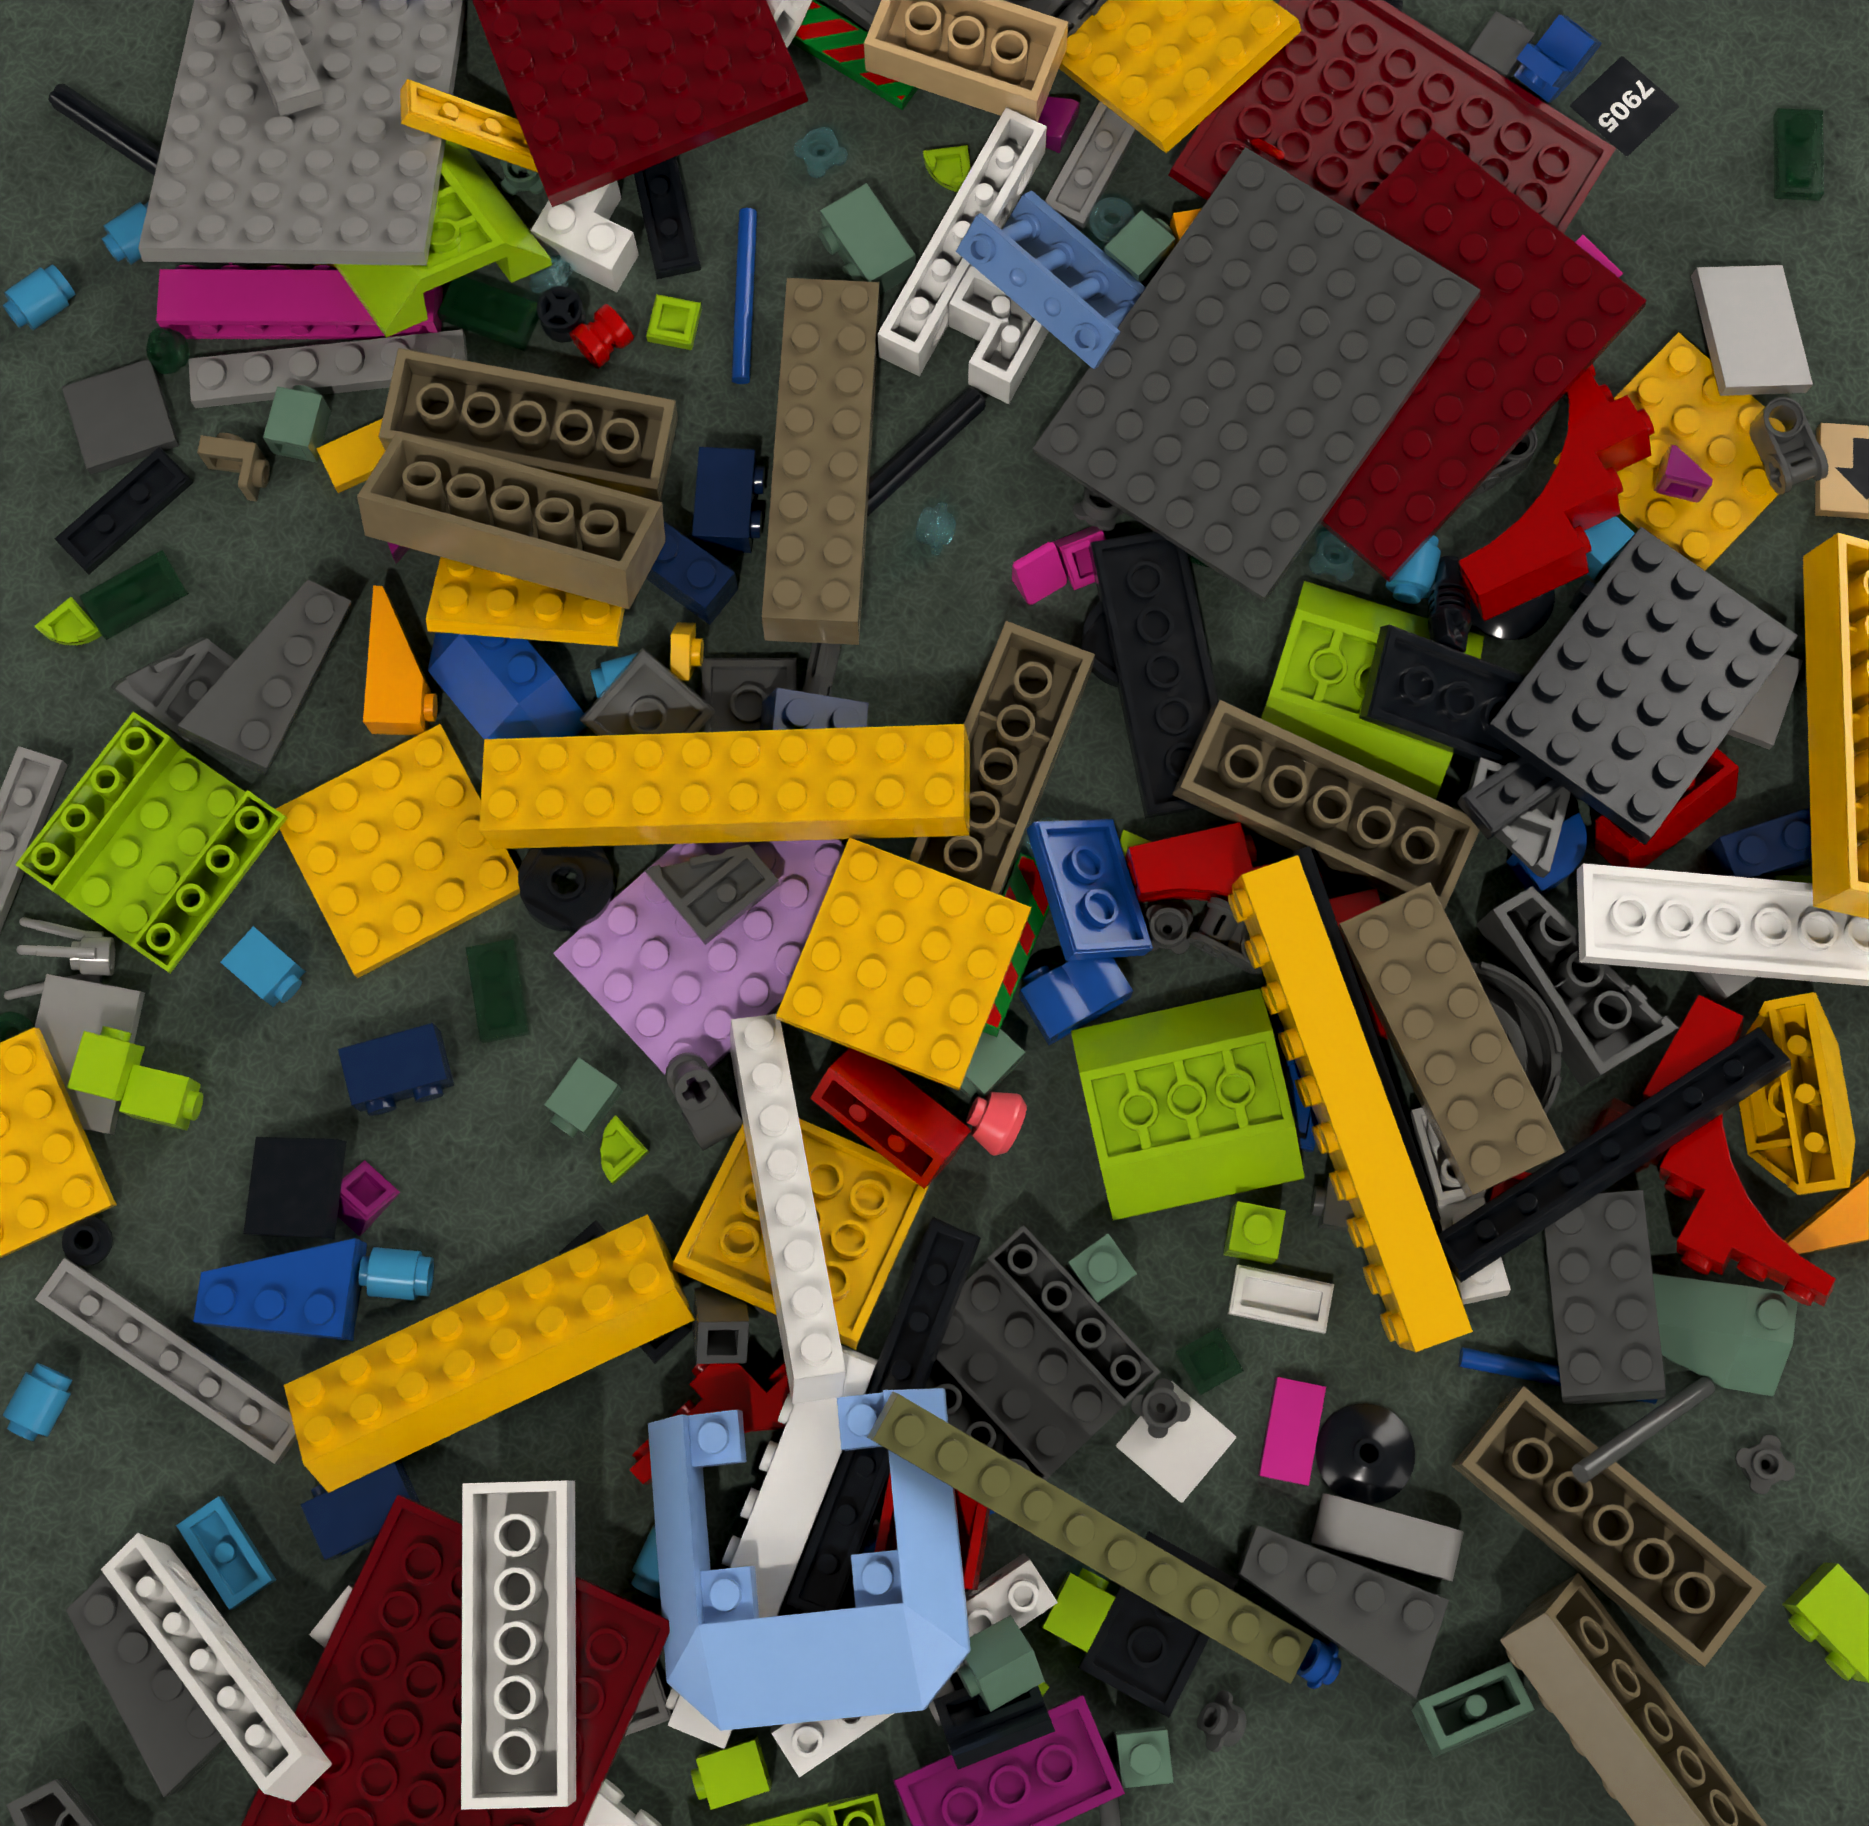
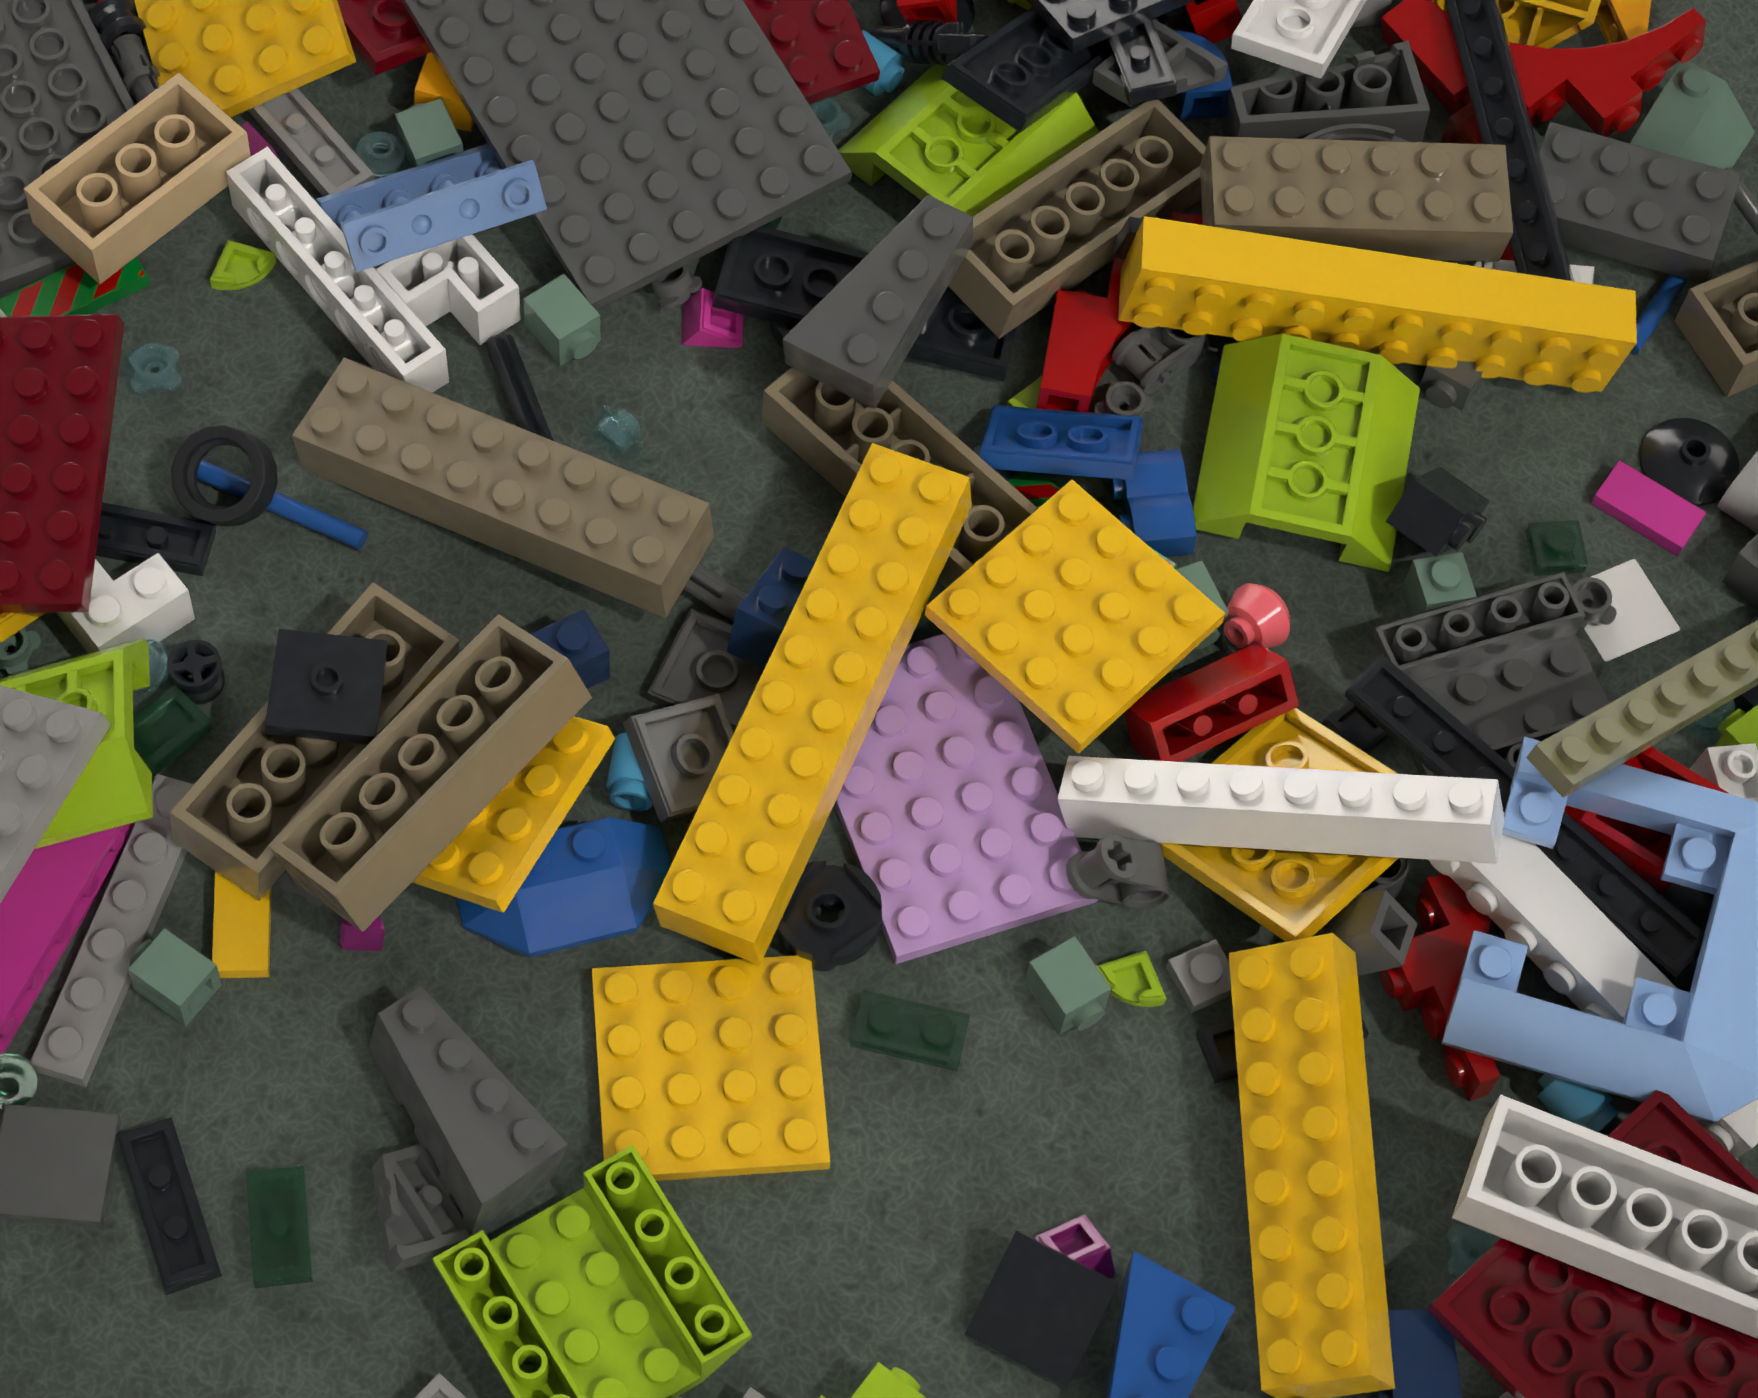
camera: 75 degrees left, 15 degrees down
(69, 624) = (274, 1315): lime tile -> none
(236, 455) = (172, 1057): dark tan bracket -> none
(264, 968) = (782, 1248): dark azure brick -> none
(396, 688) = (516, 987): light orange slope -> none
(396, 1069) = (955, 1156): dark blue brick -> none
(396, 1273) = (1180, 1237): dark azure brick -> none
(558, 409) = (326, 687): none -> black plate
(599, 337) = (244, 643): red wheel -> none
(649, 1198) = (1201, 975): none -> light grey plate
(674, 322) = (262, 576): lime tile -> none
(685, 650) = (634, 695): yellow plate -> none
(713, 232) = (187, 463): none -> black tyre
(715, 889) = (909, 765): dark grey wing -> none
(726, 499) = (479, 587): dark blue brick -> none
(866, 240) = (280, 362): sand green brick -> none
(1014, 435) = (562, 320): none -> sand green brick
(1039, 573) = (712, 363): dark pink slope -> none
(1114, 677) = (878, 310): none -> dark grey wedge
(1172, 1240) = (1439, 512): none -> black brick
(1254, 1232) = (1455, 446): lime brick -> none
(1280, 1299) = (1520, 465): white tile -> none

